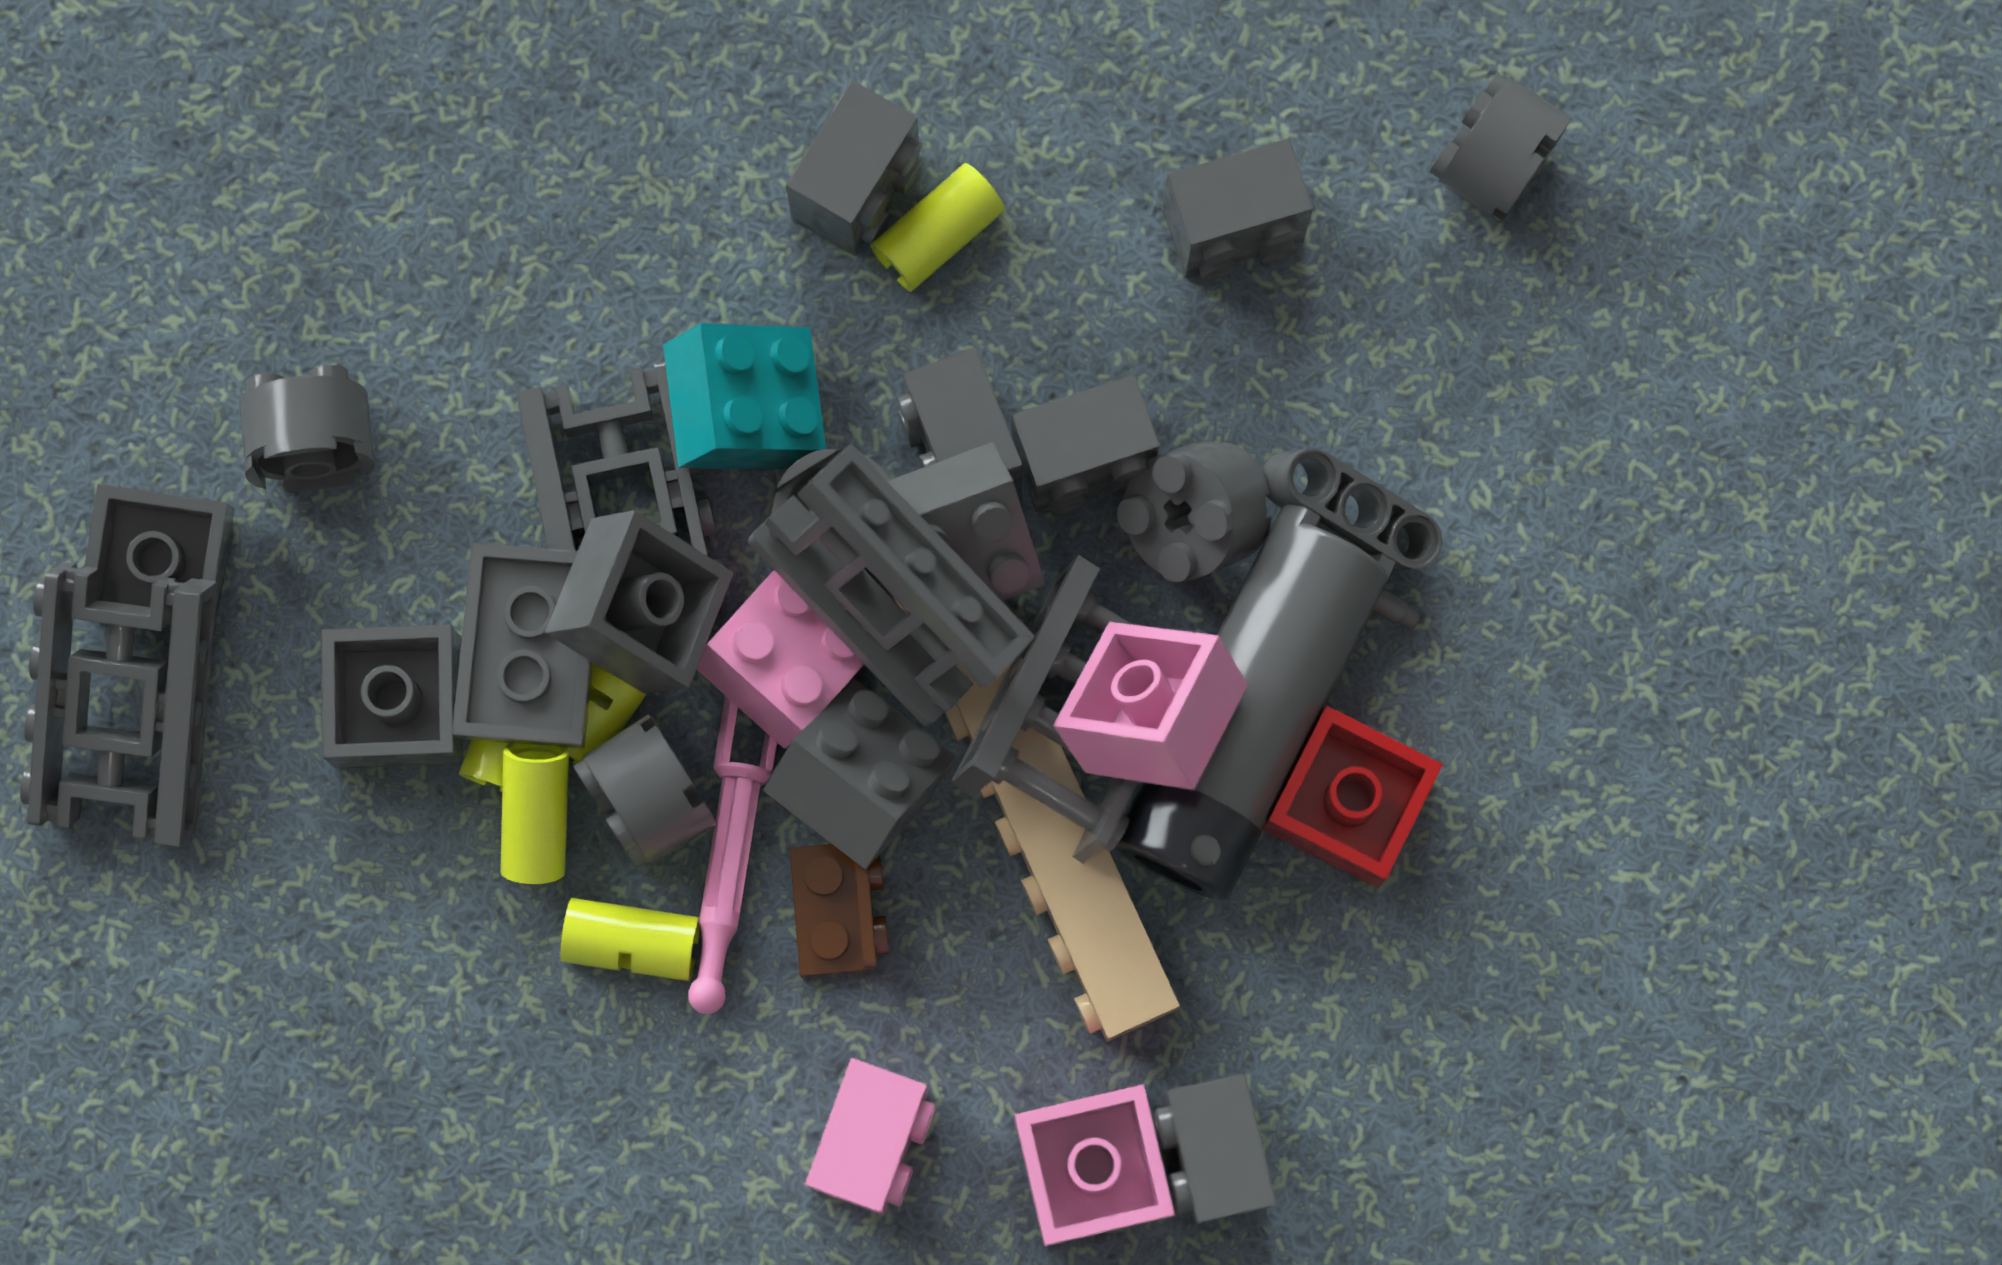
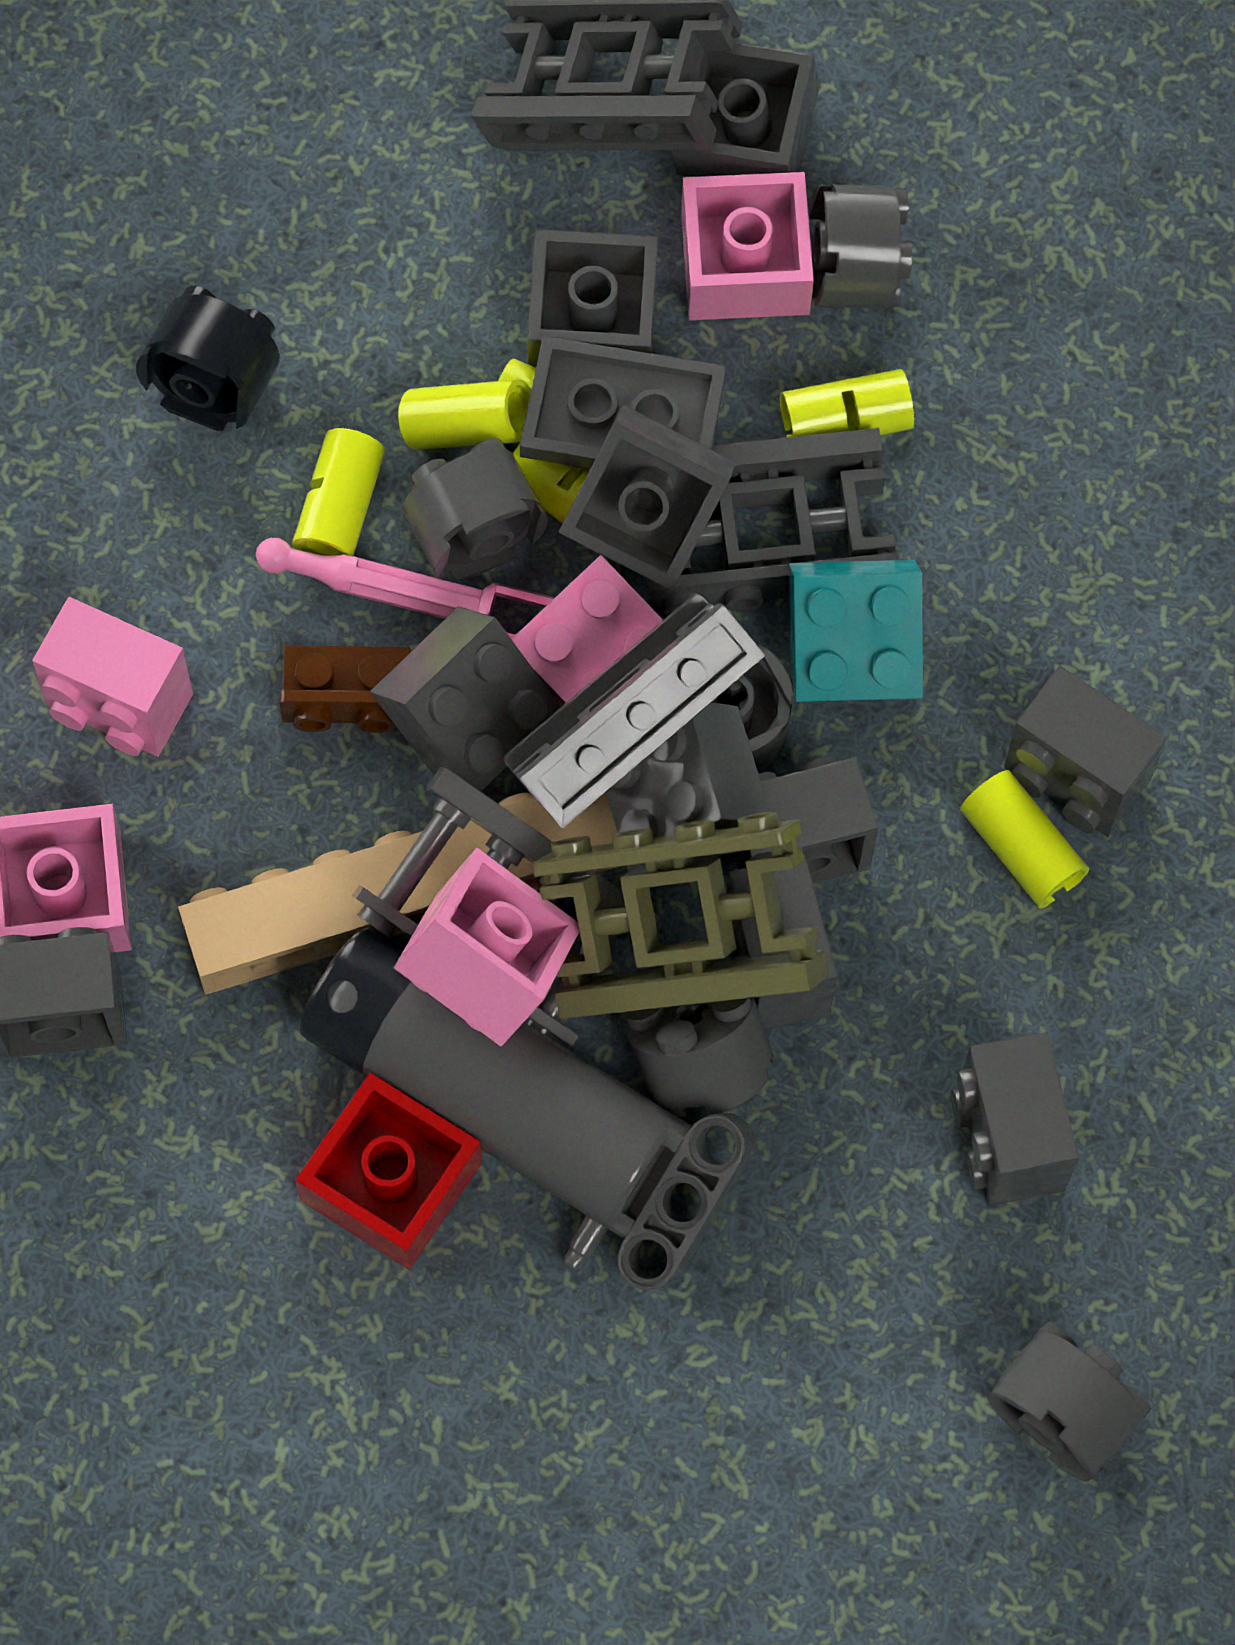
camera: 95 degrees right, 10 degrees down
(311, 545) = (746, 246): none -> bright pink brick
(487, 431) = (850, 405): none -> neon yellow pin
(491, 1089) = (197, 351): none -> black brick
(1151, 516) = (688, 968): none -> olive fence

